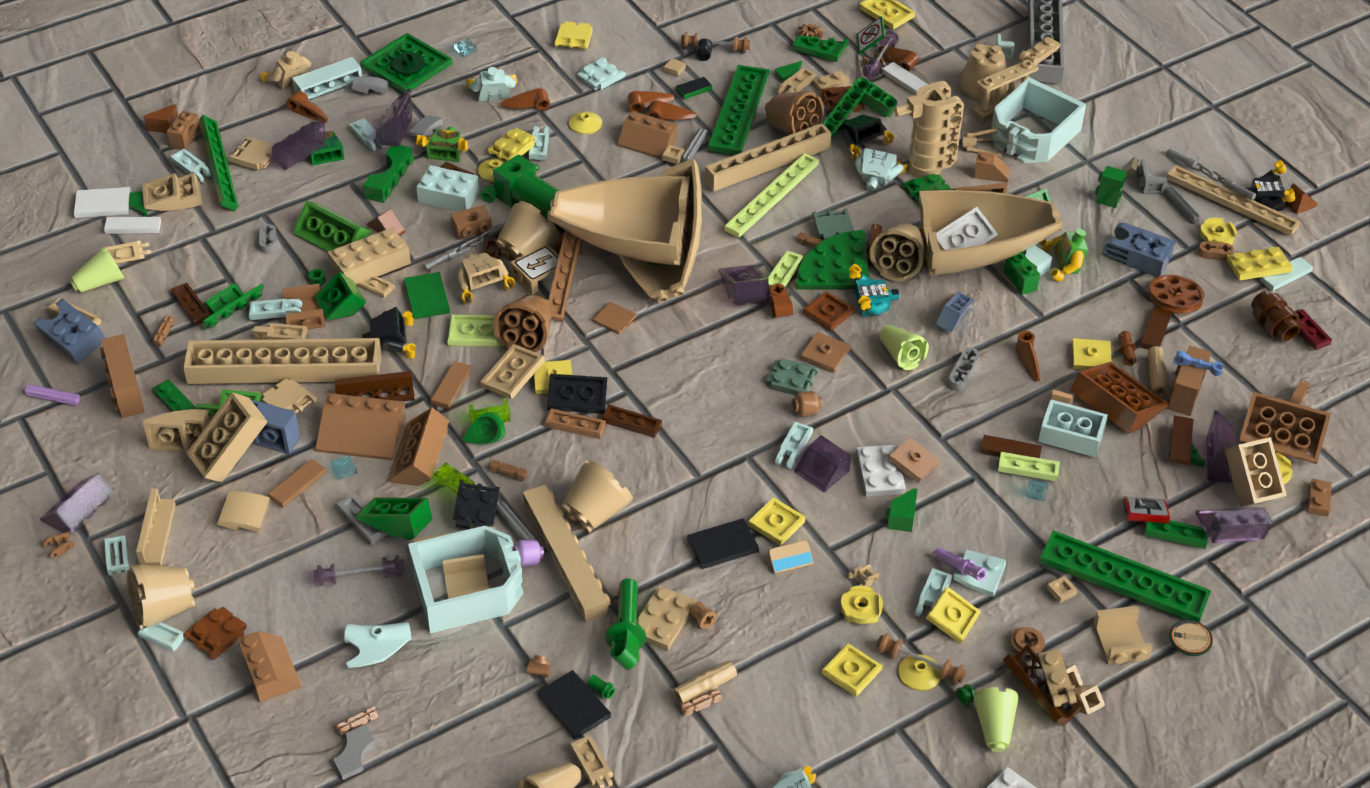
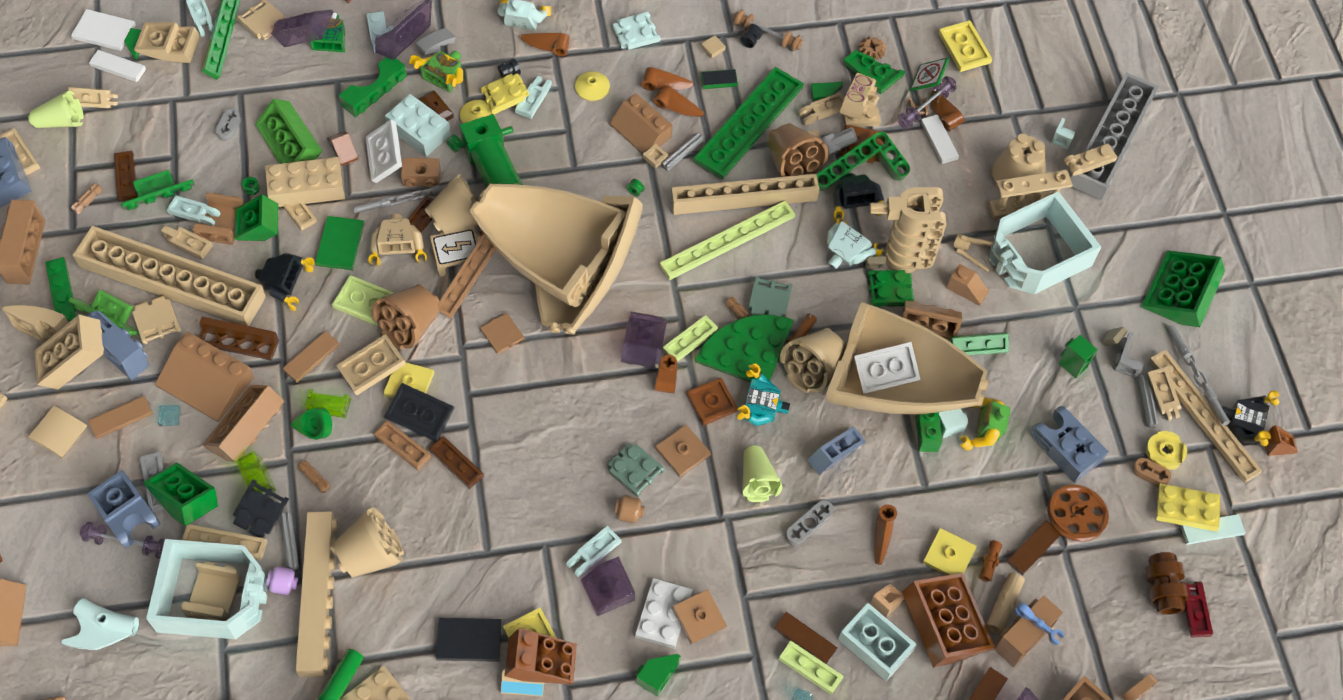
camera: 20 degrees right, 15 degrees up
(347, 541) = (122, 506): none -> sand blue brick
(429, 214) = (383, 151): none -> white plate
(506, 125) = (510, 68): none -> black wheel
(797, 528) = (540, 658): none -> dark orange slope
(823, 64) = (860, 97): none -> tan piece
(829, 95) = (837, 141): none -> light grey piece
(906, 174) = (875, 262): none -> dark tan tile
(1163, 120) = (1184, 287): none -> green slope
(1193, 193) = (1164, 392): none -> tan hinge

